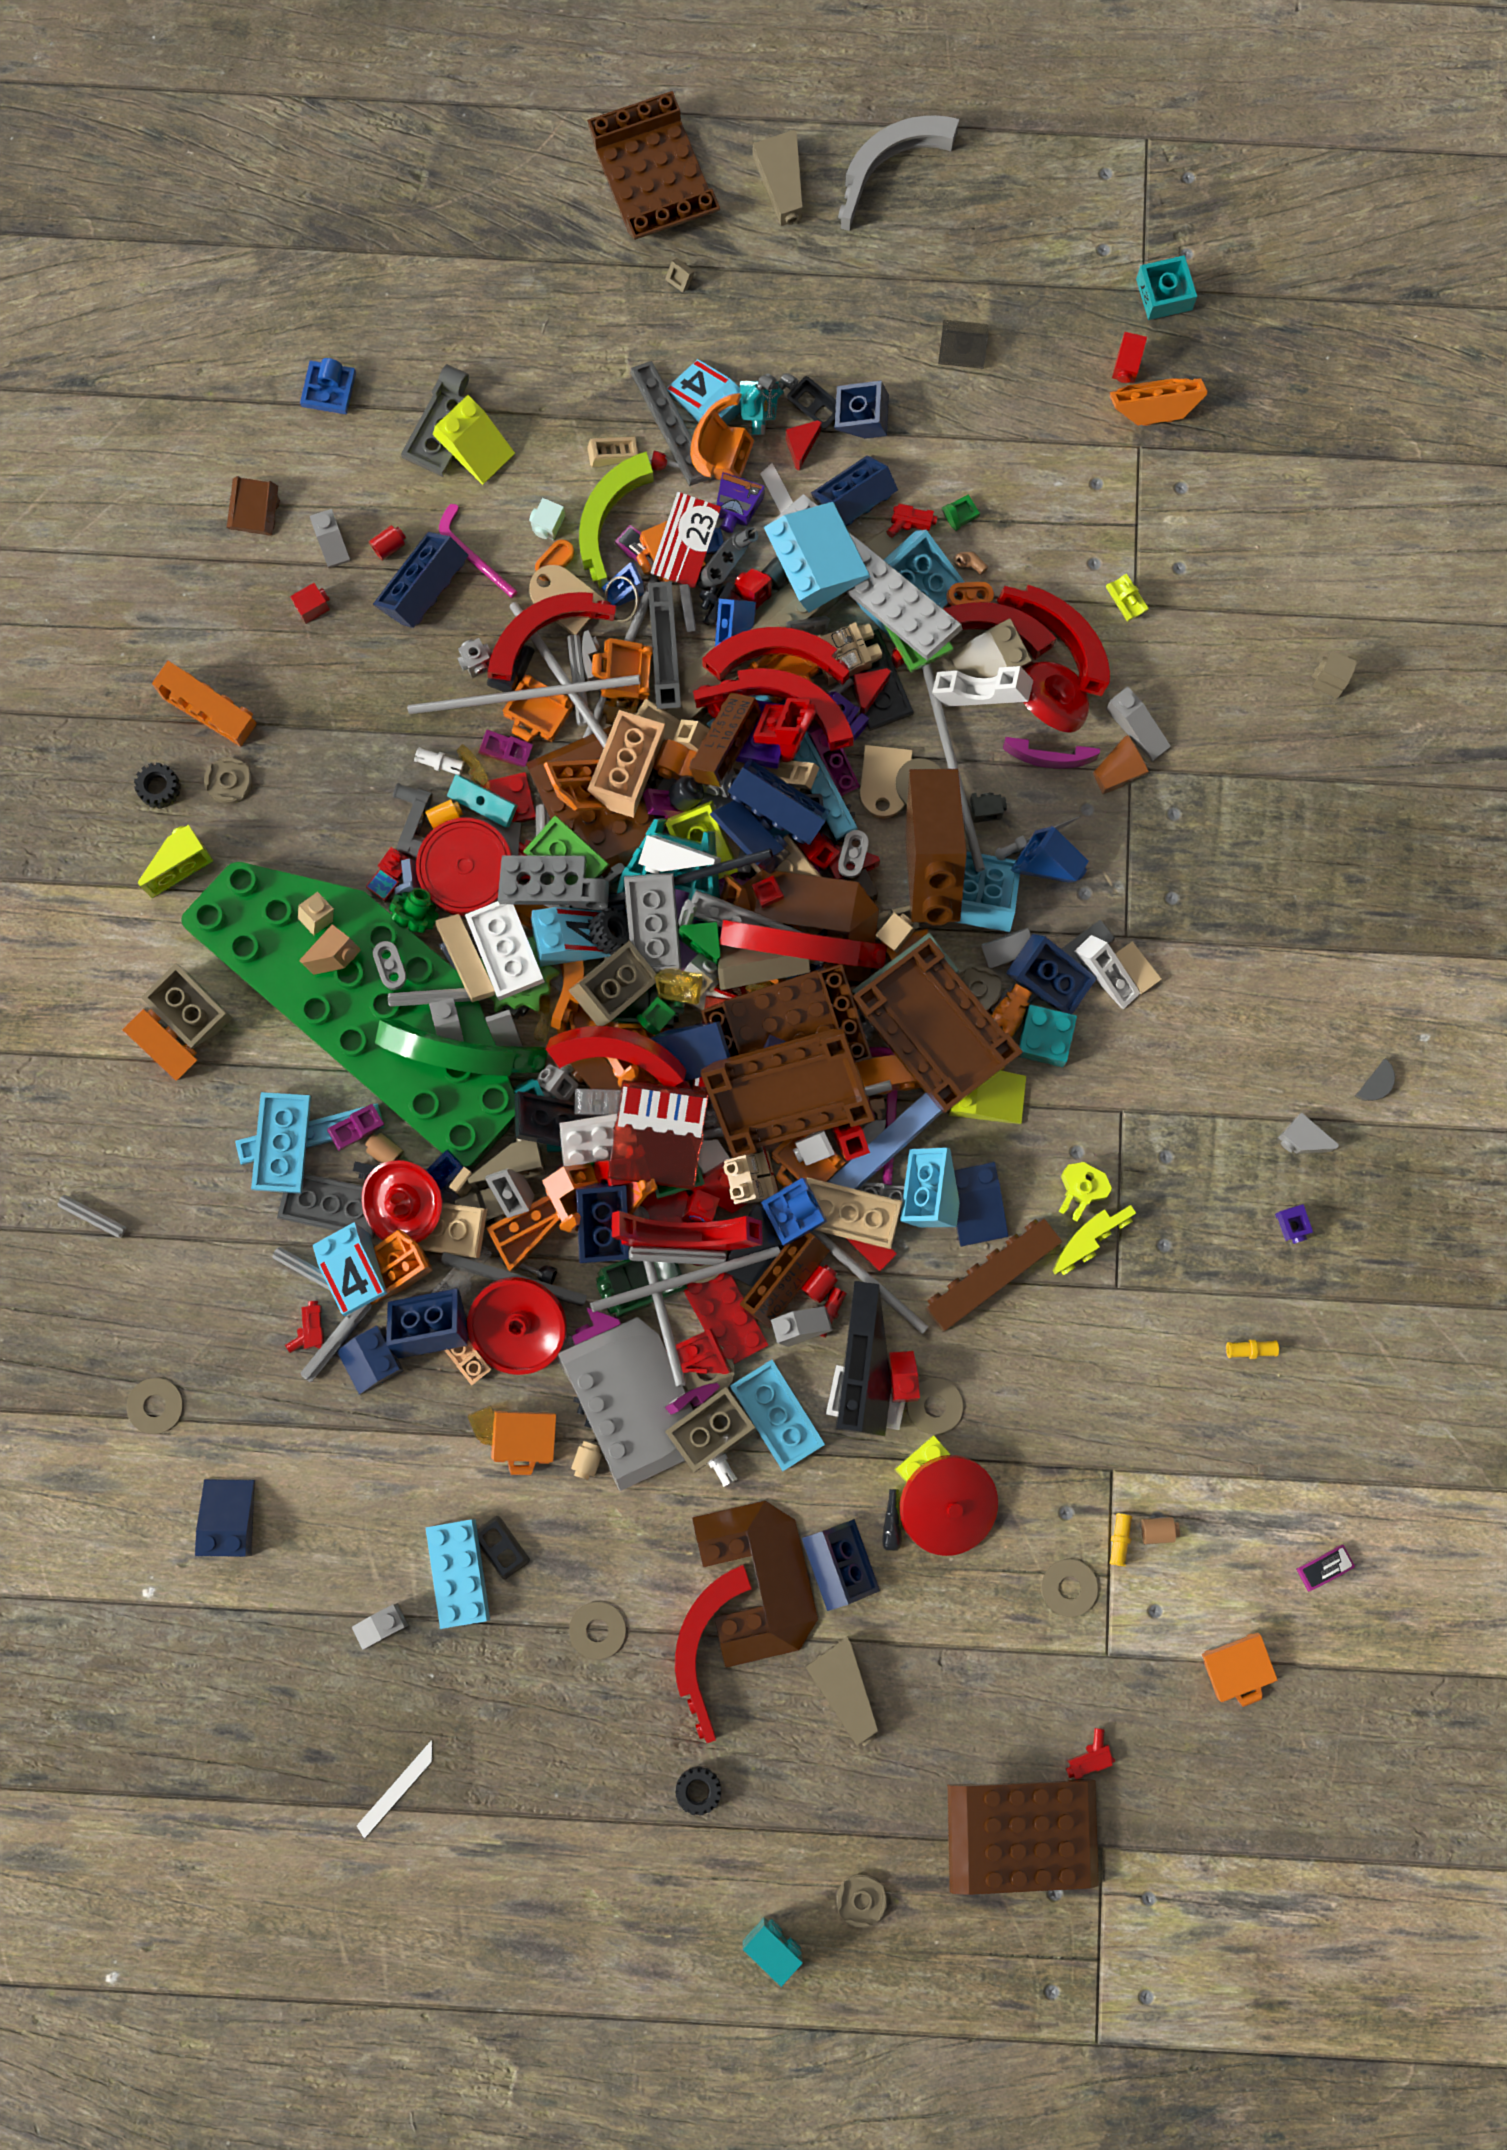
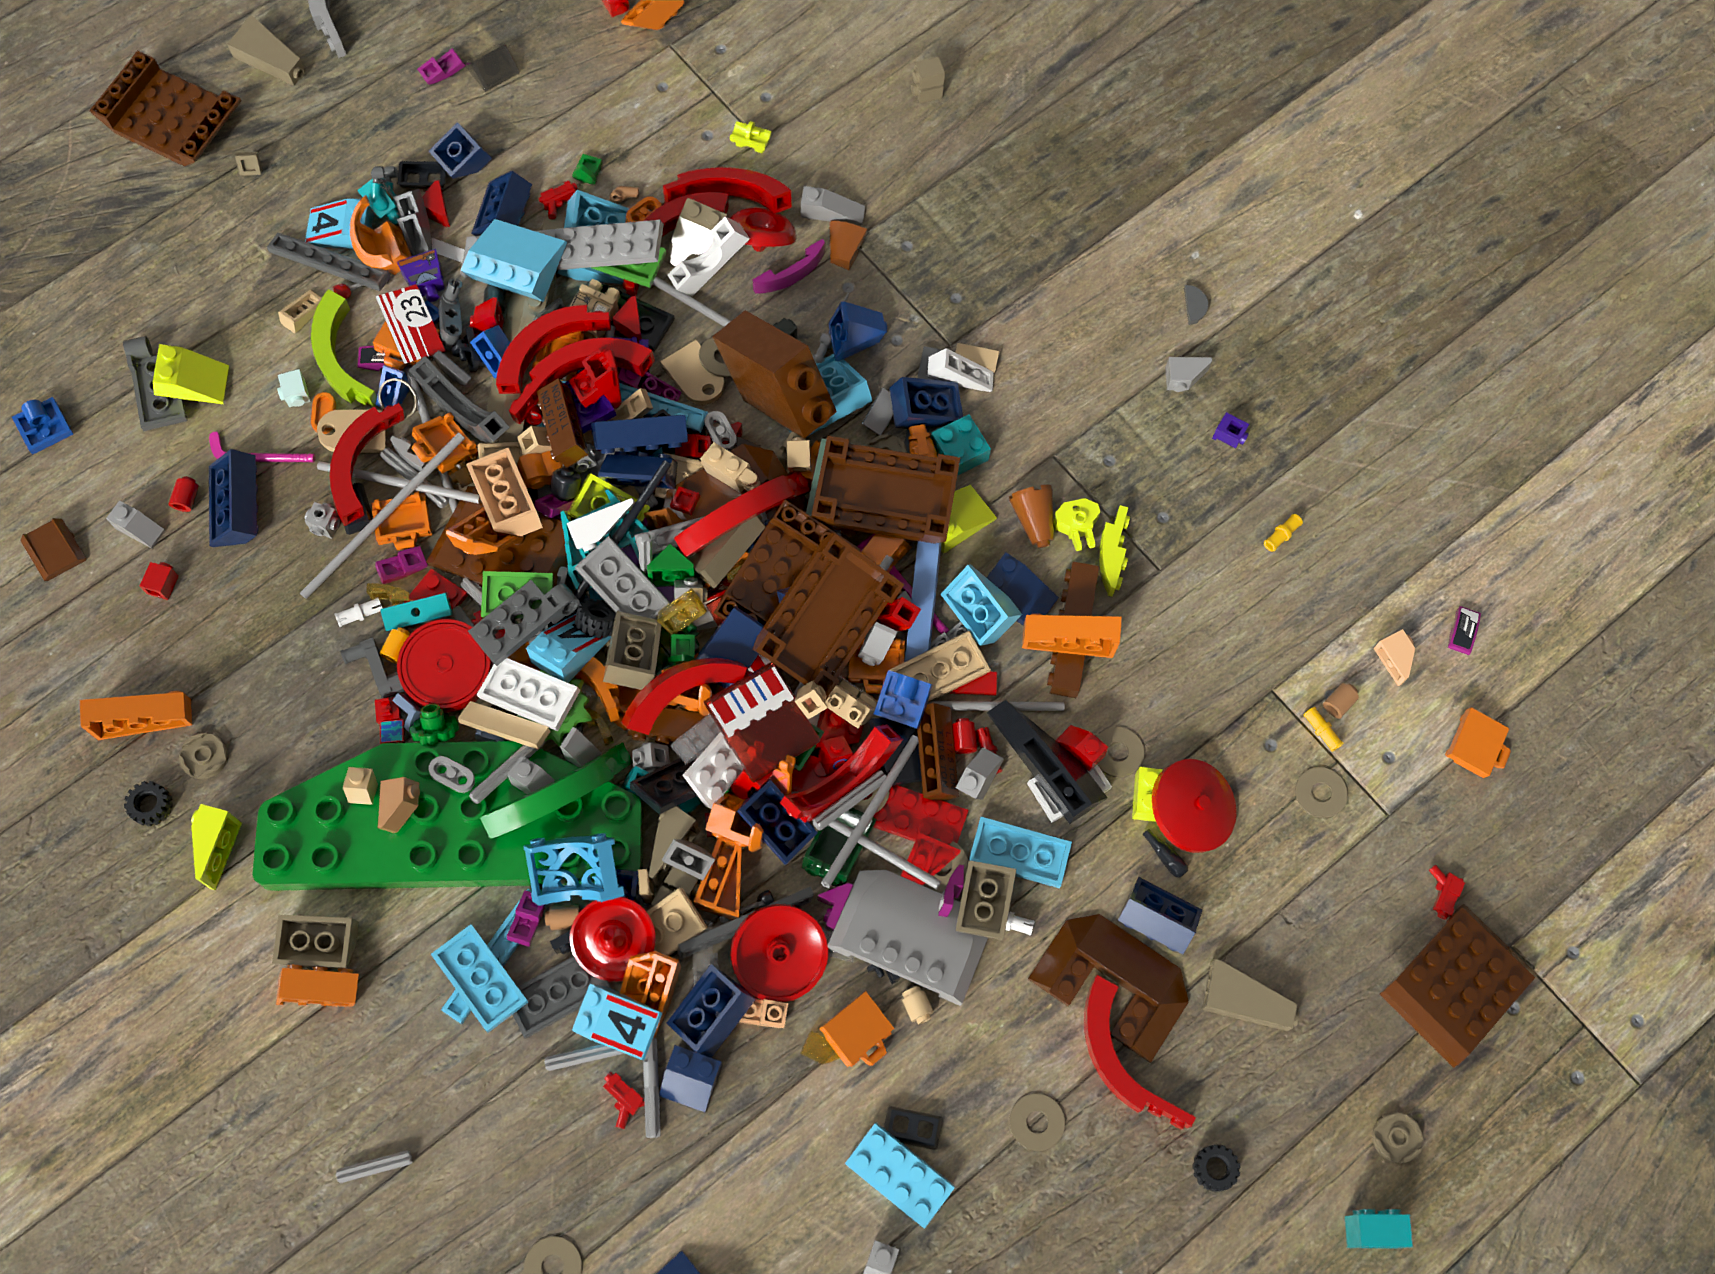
camera: 45 degrees left, 10 degrees down
(442, 1122) = (553, 890): none -> dark azure fence
(721, 1149) = (814, 697): none -> tan brick
(768, 446) = (414, 222): none -> dark grey slope
(824, 898) = (729, 468): none -> tan hinge
(917, 310) = (444, 67): none -> magenta slope
(979, 1279) = (1072, 634): none -> orange wedge
(1053, 1150) = (1035, 513): none -> dark orange cone
(1245, 1536) = (1397, 655): none -> light nougat slope

